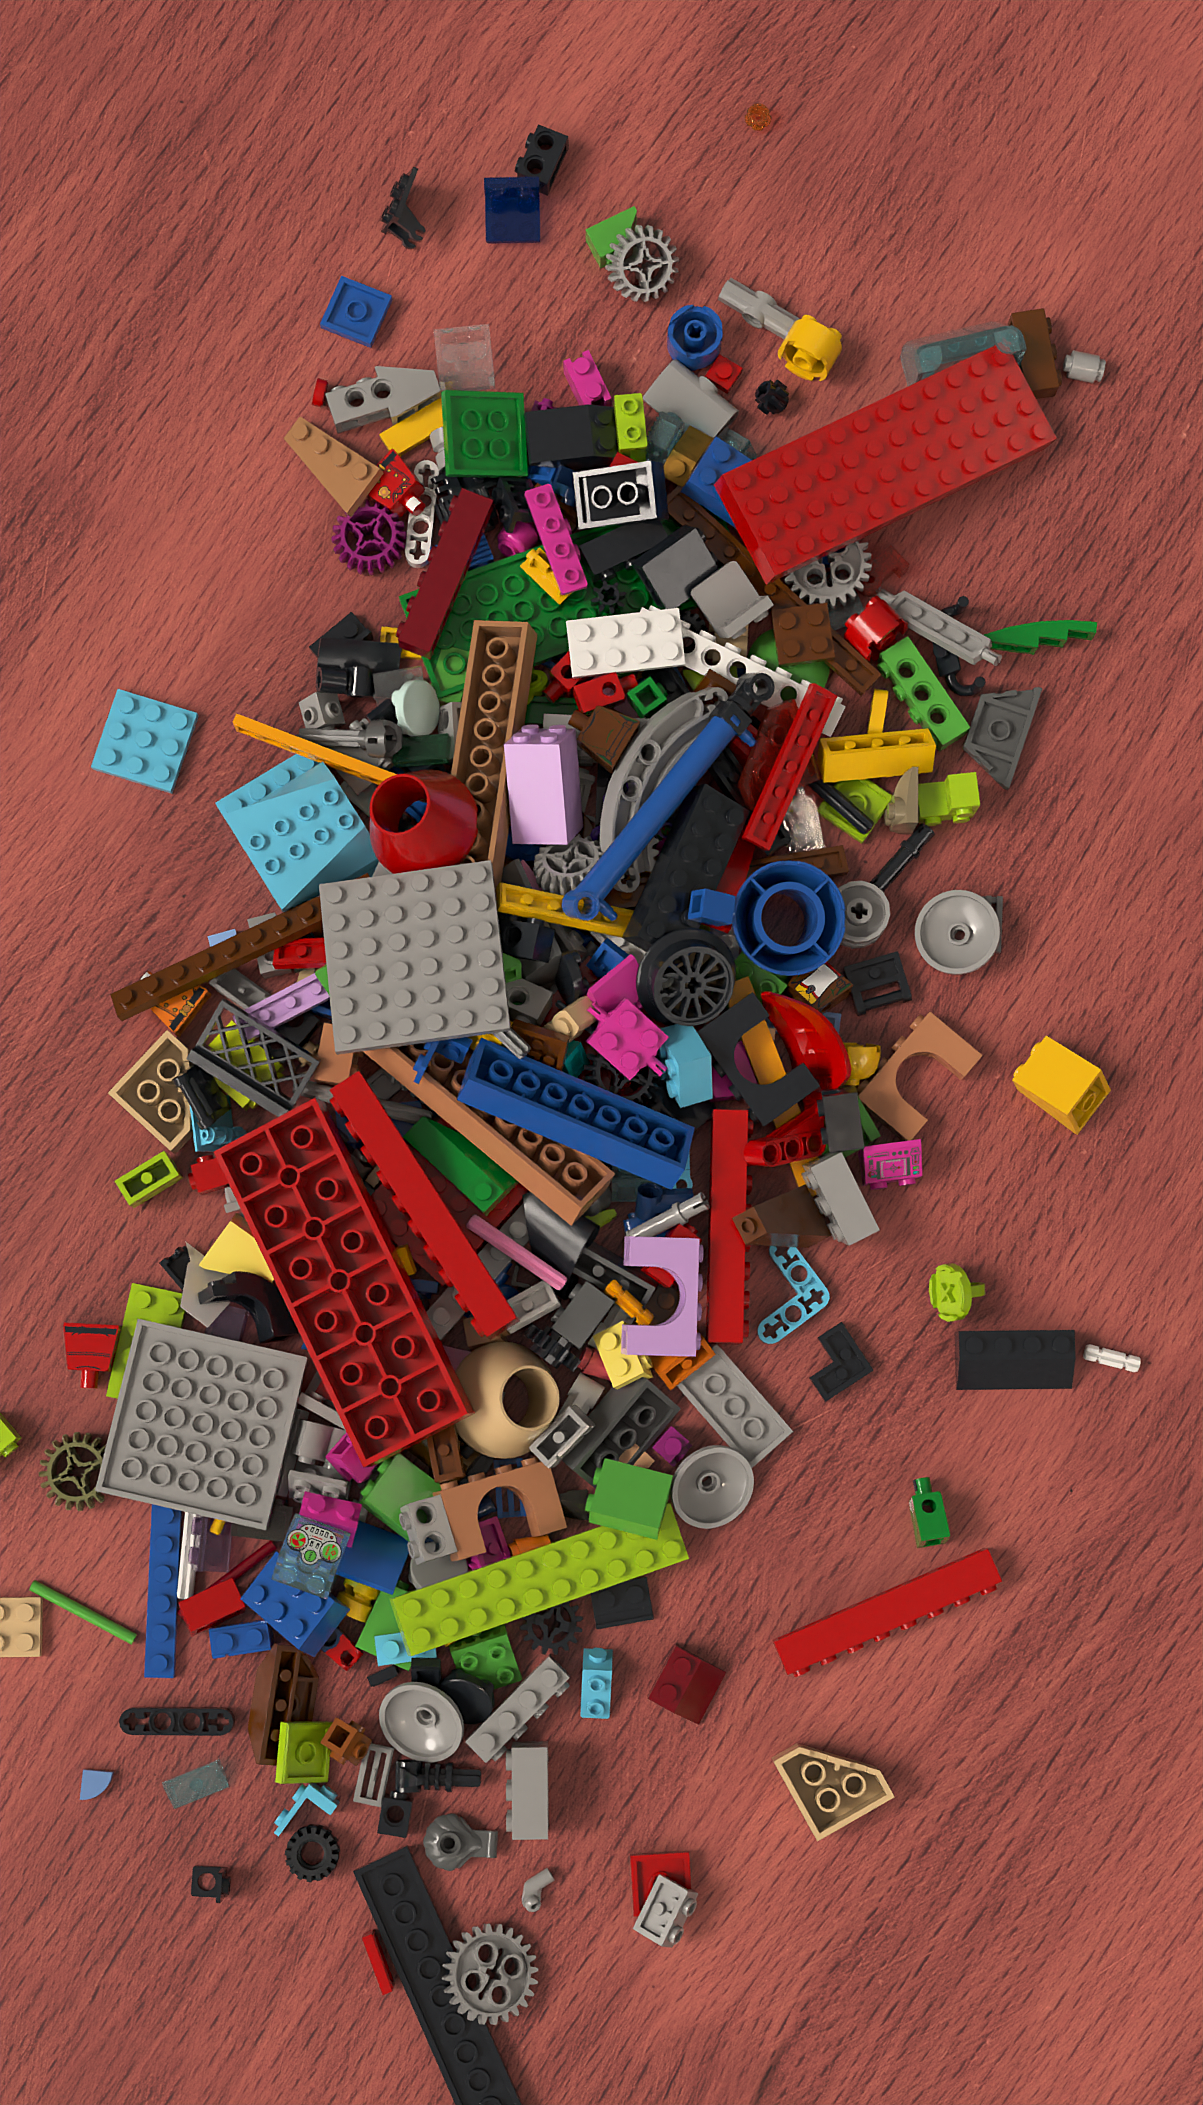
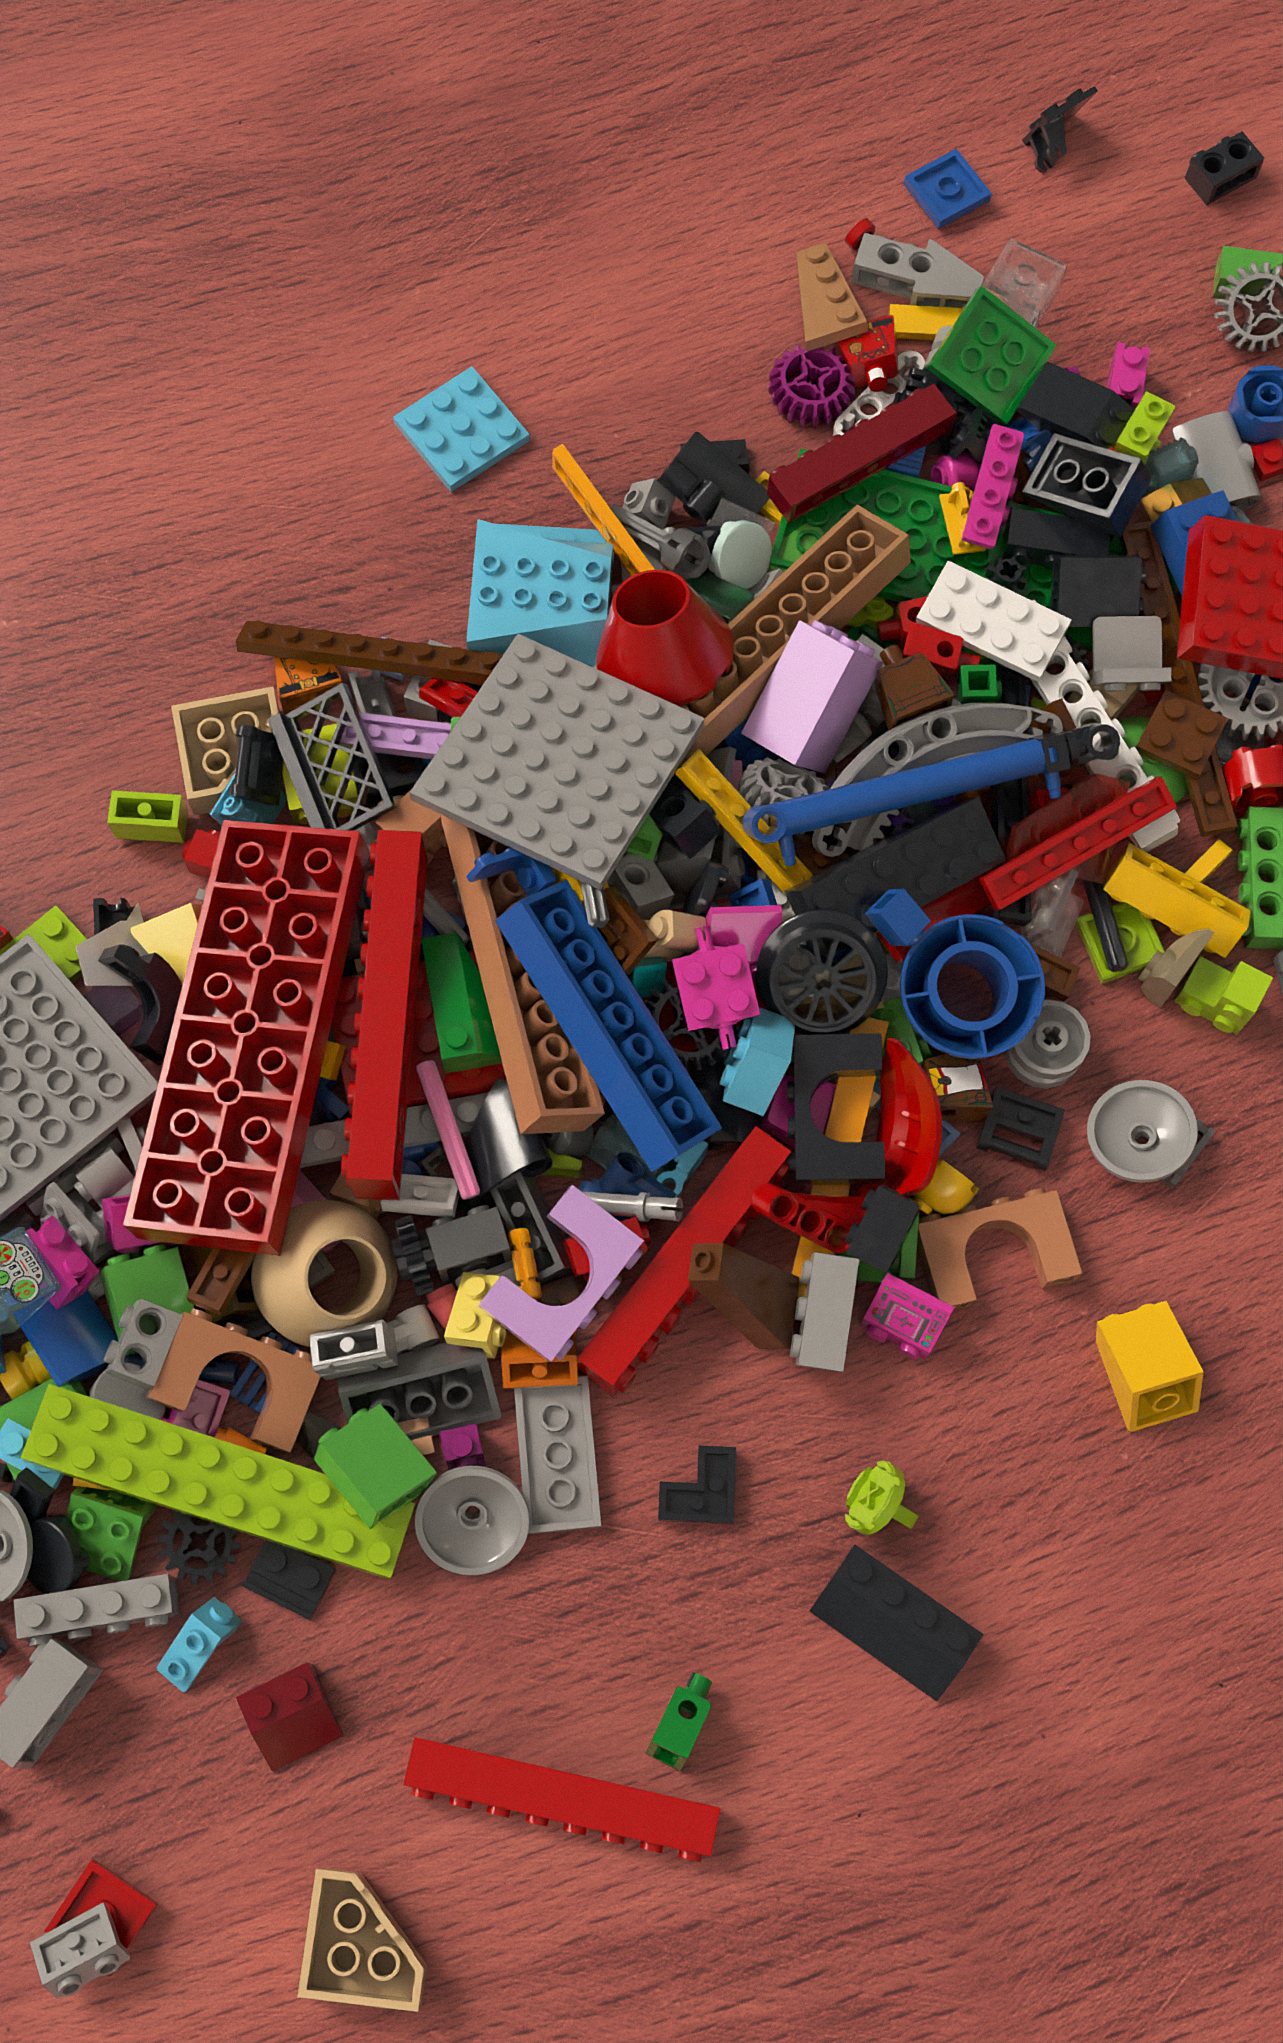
camera: 35 degrees right, 10 degrees down
(382, 1084) = (440, 886): flat silver tile -> none
(512, 209) = (1164, 189): clear blue bracket -> none
(801, 1288) = (719, 1386): medium azure beam -> none
(905, 854) = (1143, 1020): black pin -> none
(1112, 1358) = (1004, 1700): white axle -> none

